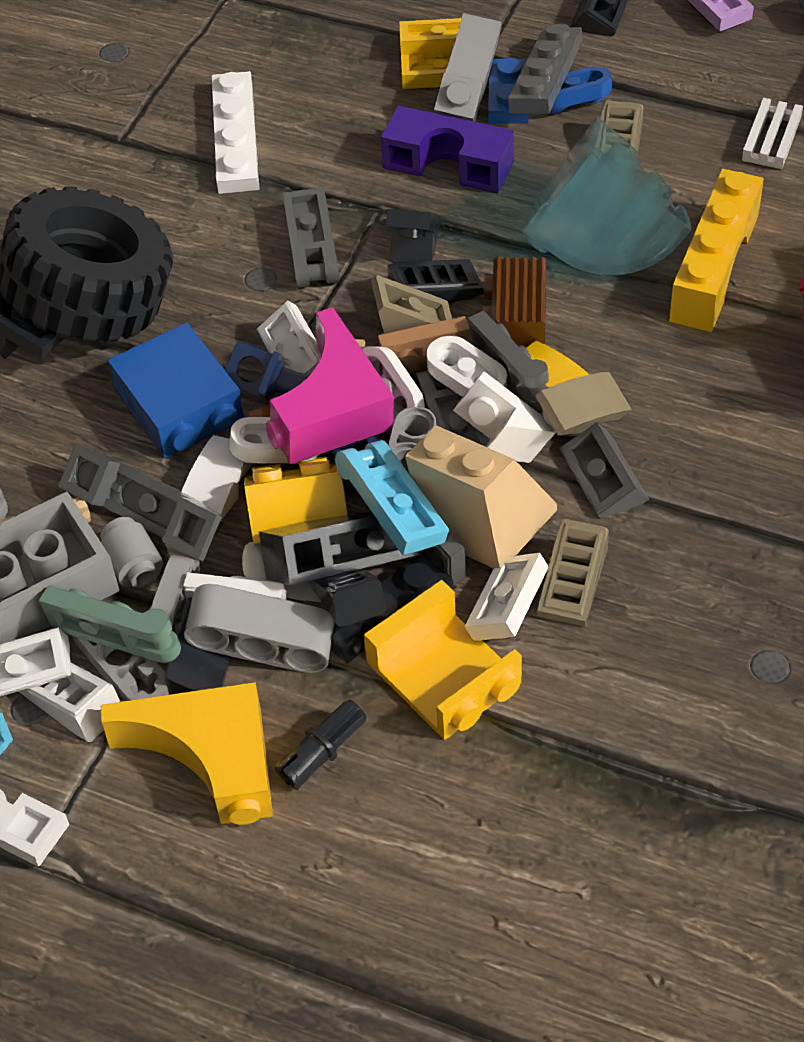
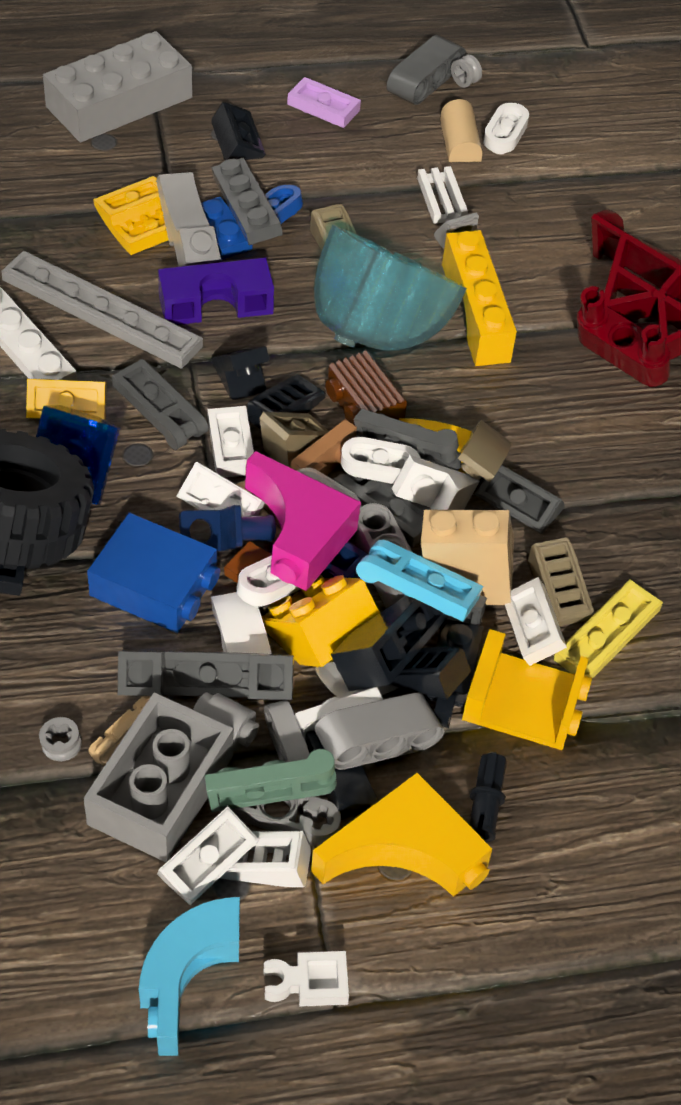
camera: 40 degrees left, 0 degrees up
(198, 241) = (84, 436): none -> clear blue slope
(225, 200) = (75, 394): none -> yellow plate
(333, 132) = (102, 309): none -> light grey tile
(350, 293) = (230, 440): none -> white plate
(590, 644) = (609, 629): none -> light yellow tile
(762, 168) = (459, 224): none -> light grey slope

